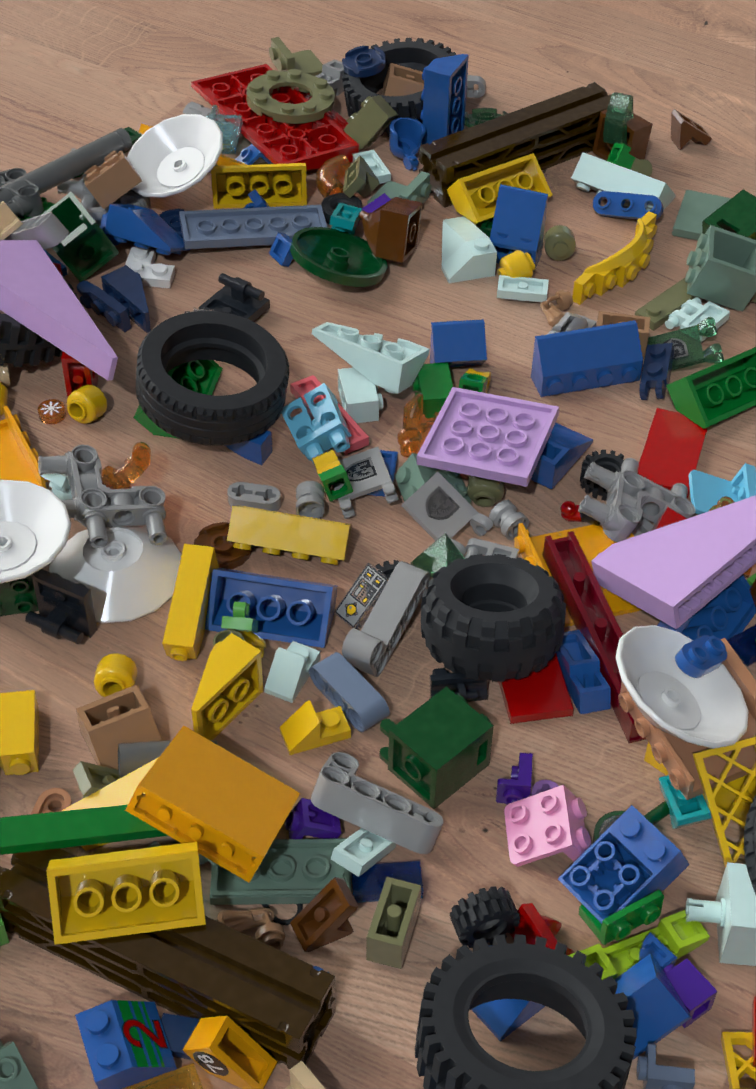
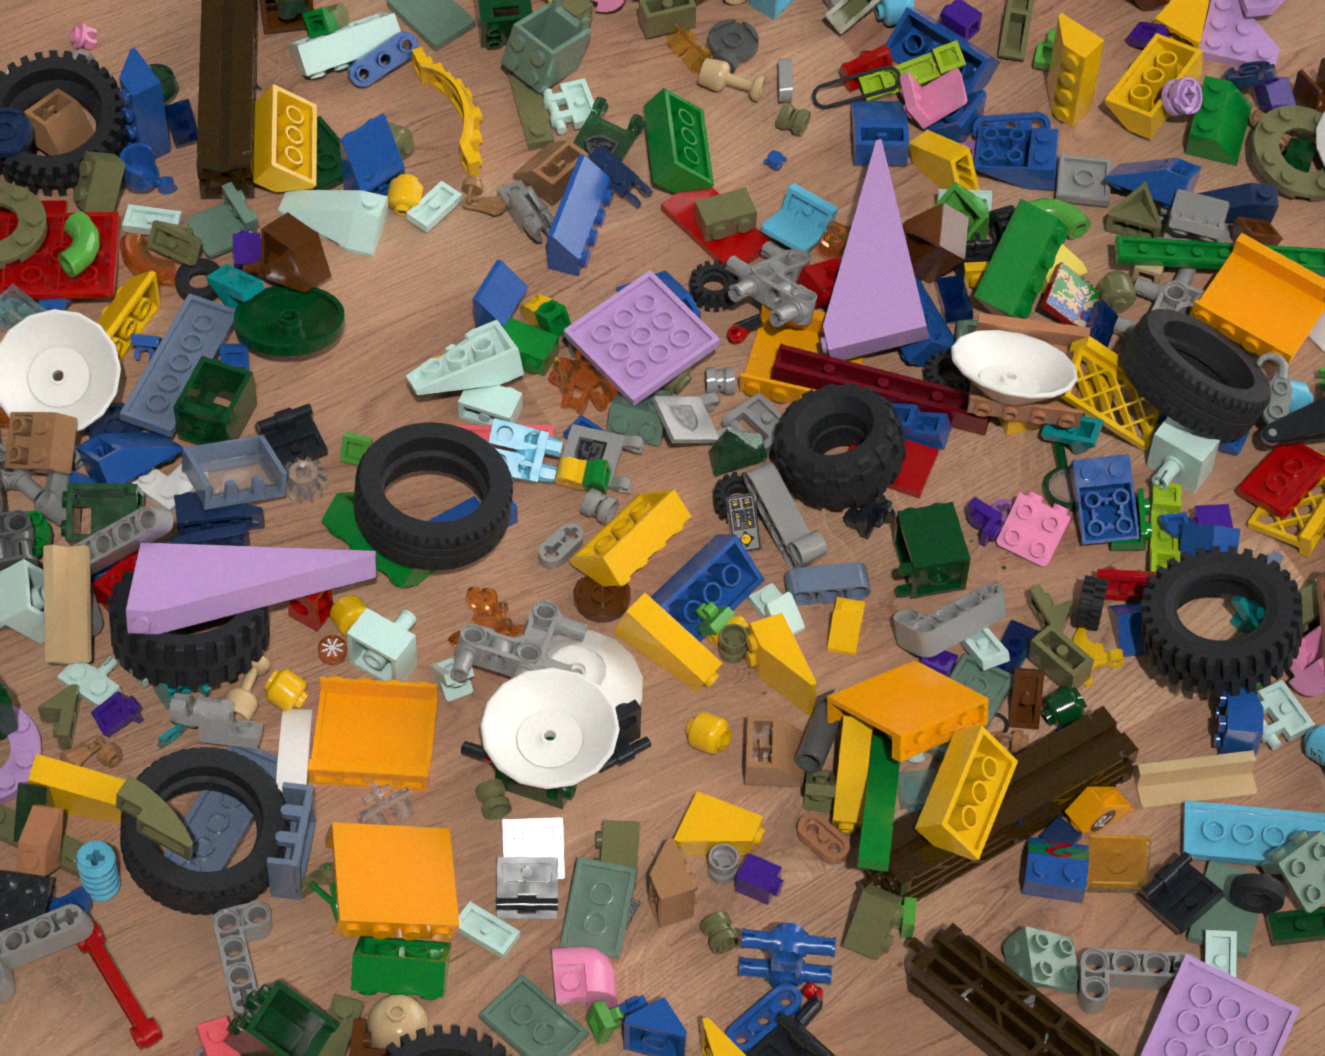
camera: 60 degrees left, 10 degrees up
(58, 423) = (382, 646): none -> light aqua brick
(167, 281) = (234, 471): none -> sand blue window
(226, 247) = (206, 422): none -> dark green container
(304, 133) = (83, 246): none -> bright green cylinder
(340, 956) = (1063, 706): none -> dark green head
(427, 953) = (1112, 658): none -> yellow piece
(446, 890) = (1045, 611): none -> olive slope
(496, 77) = (83, 36): none -> bright pink plate
(680, 443) = (725, 214): none -> olive brick
(701, 656) = (993, 336): blue plate -> none

